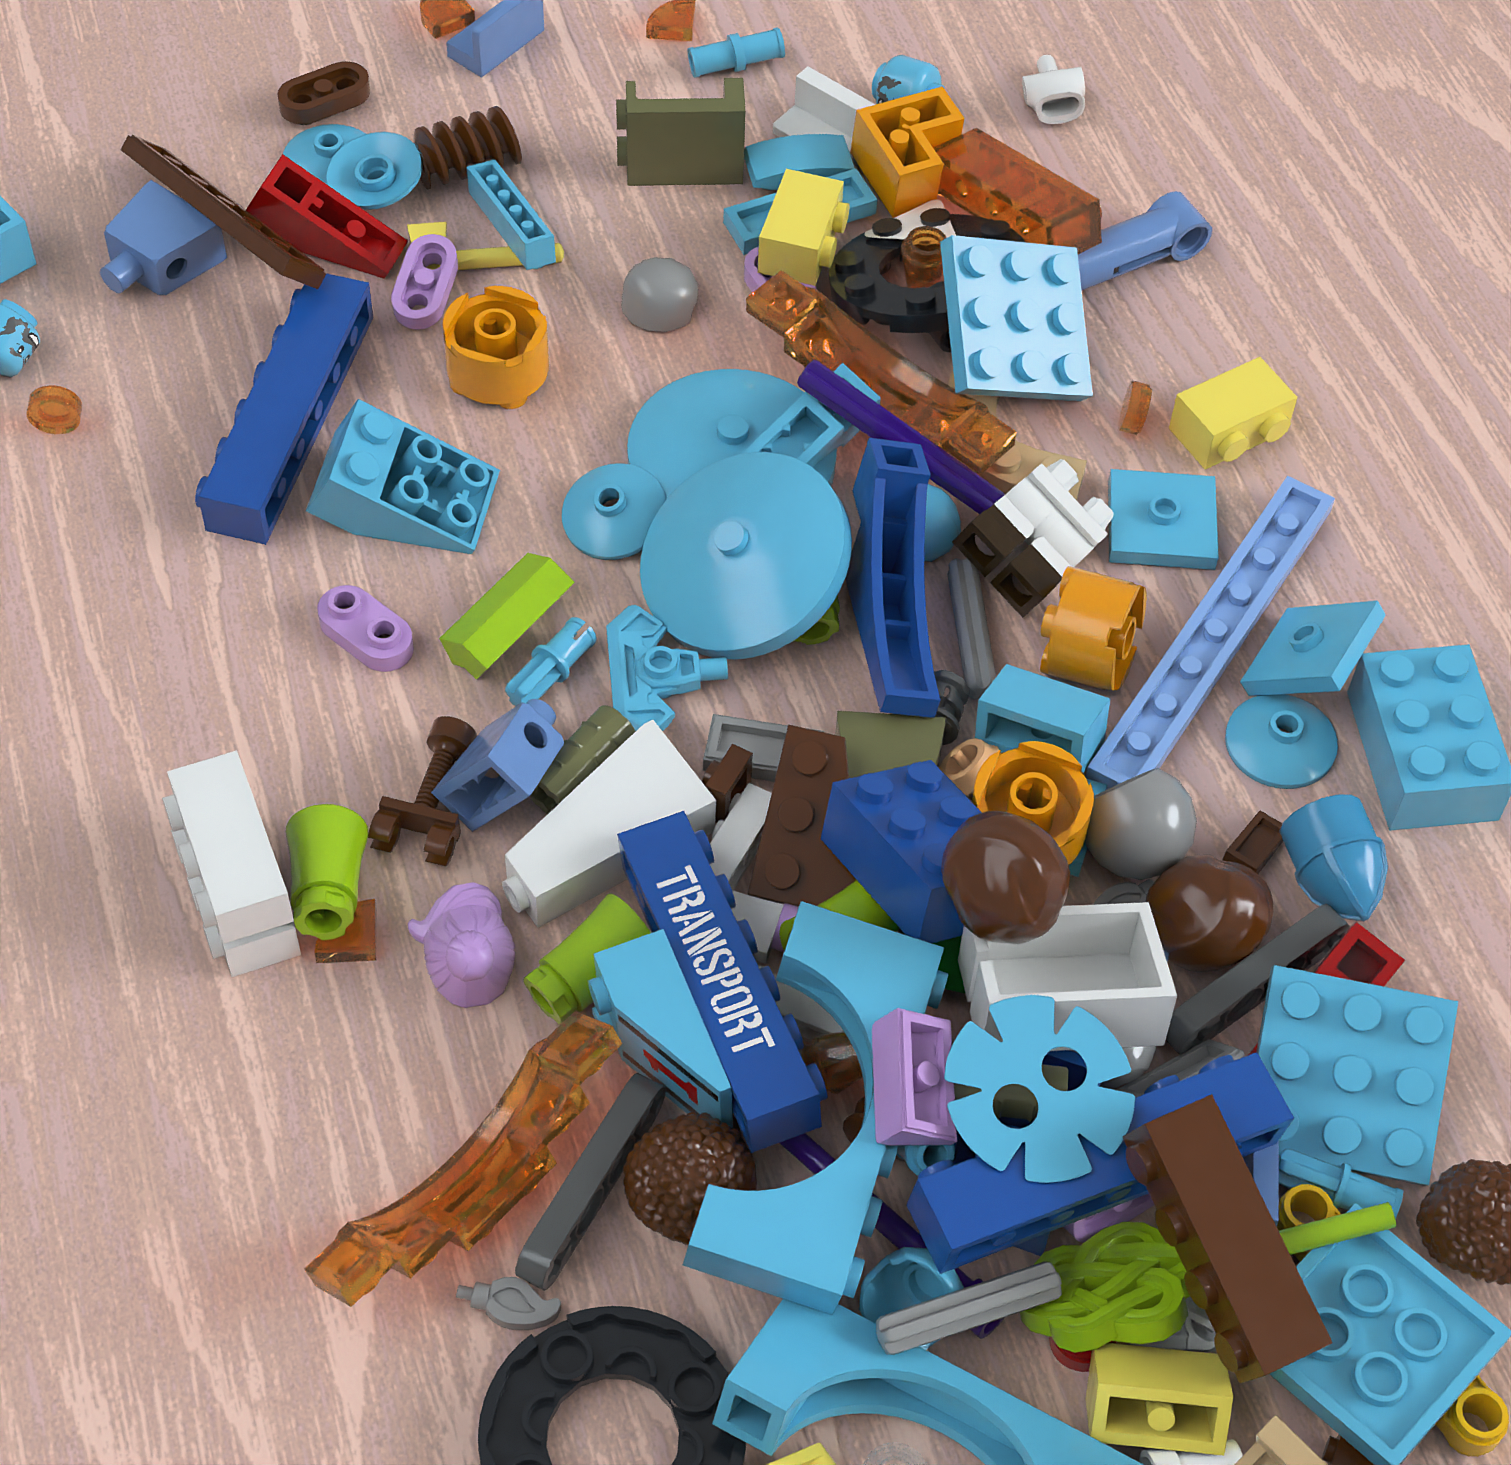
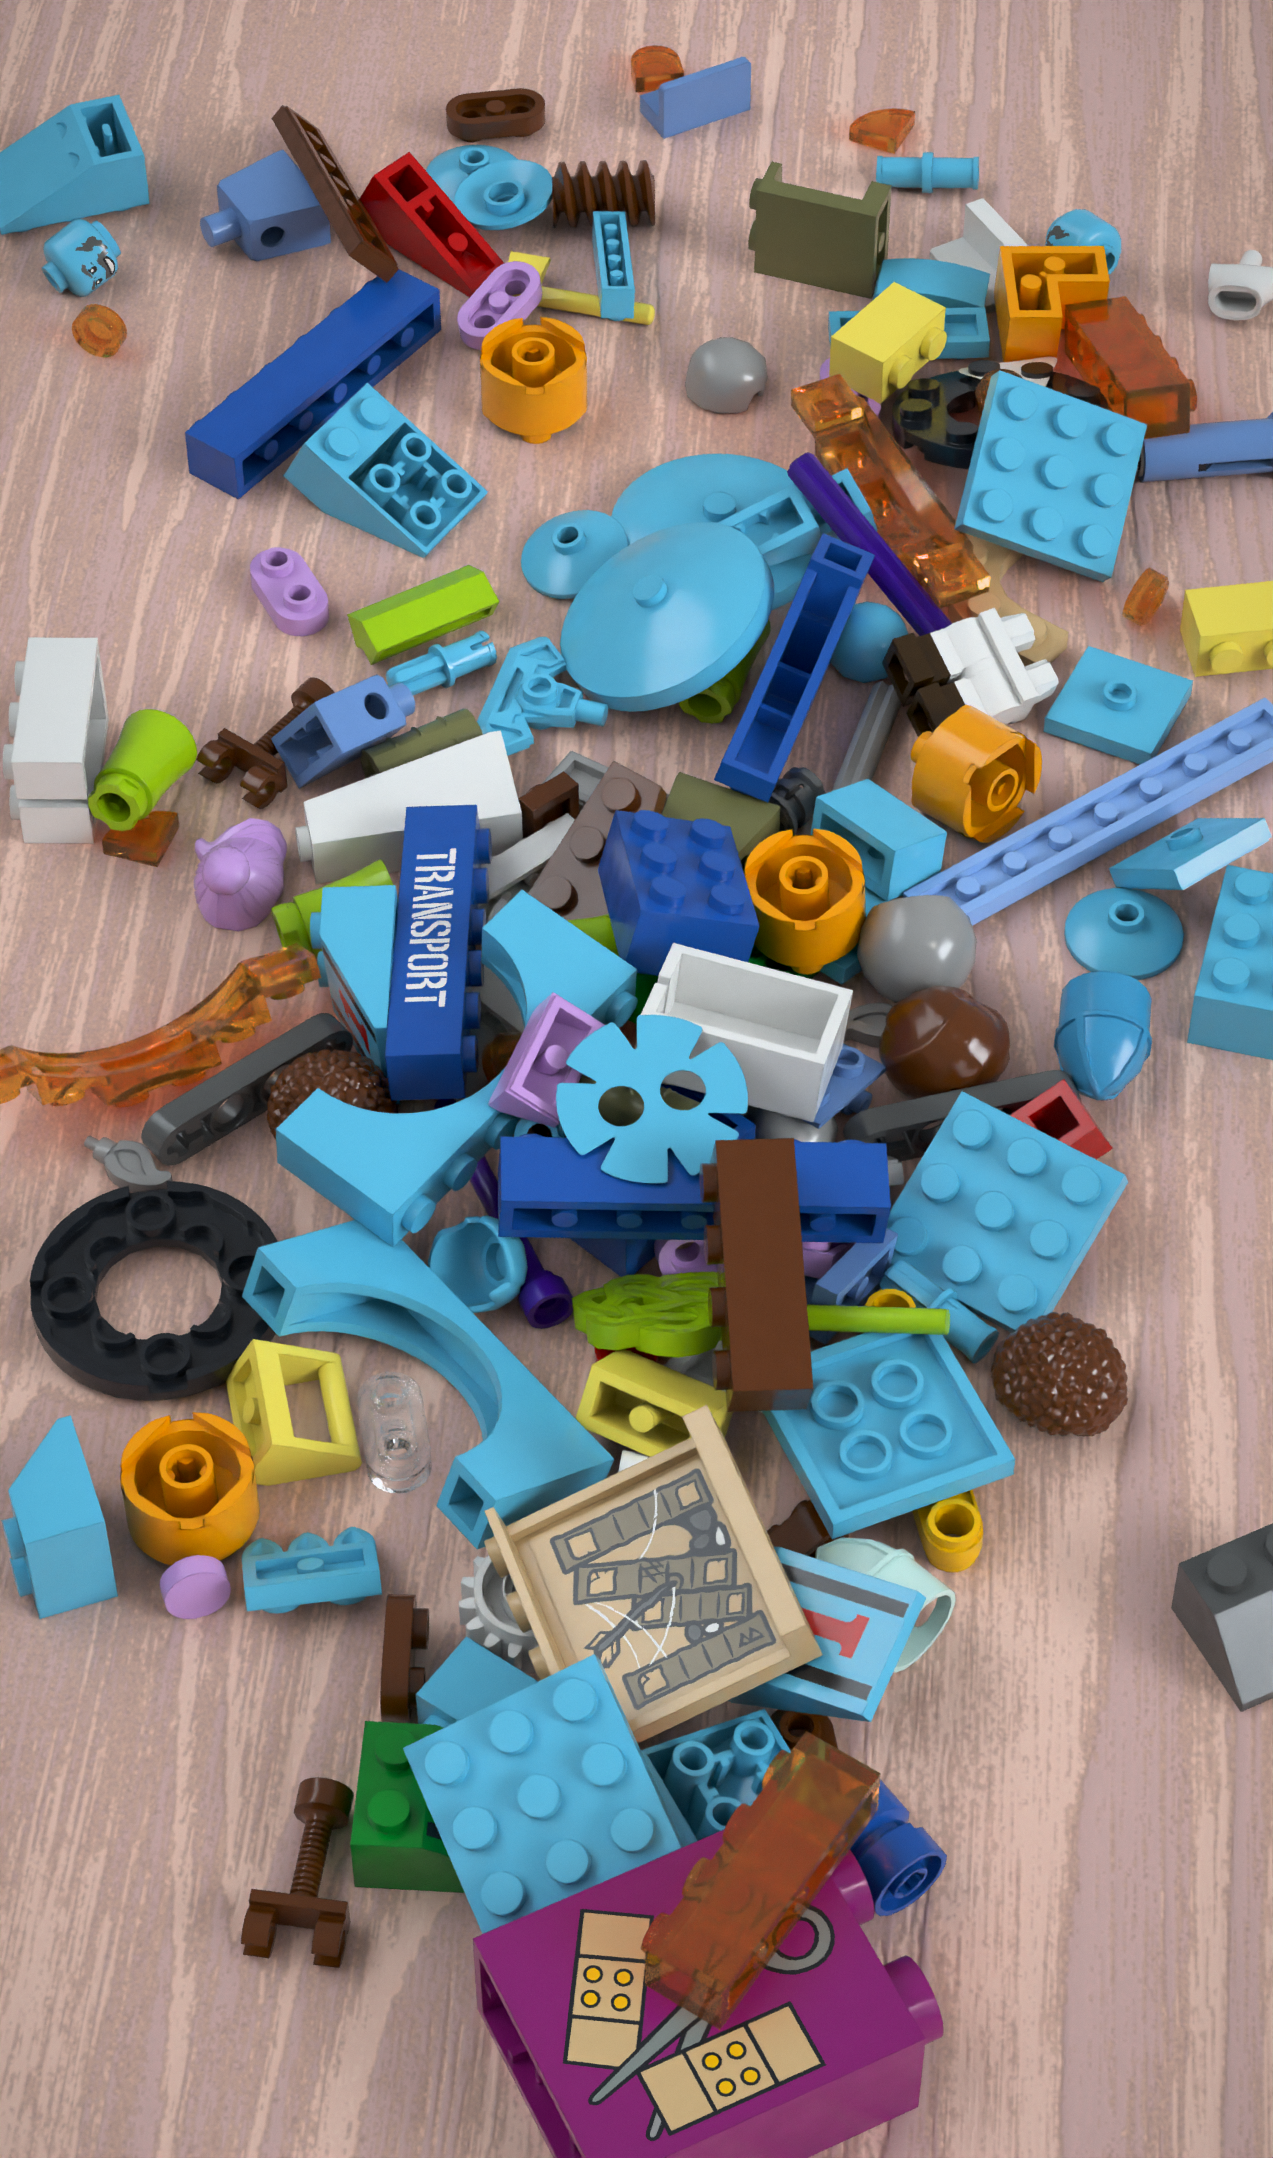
camera: 25 degrees right, 5 degrees down
(968, 1308) = (515, 1277): light grey axle -> none
(1005, 877) = (698, 908): reddish brown piece -> none
(1256, 842) = (1032, 1015): reddish brown piece -> none

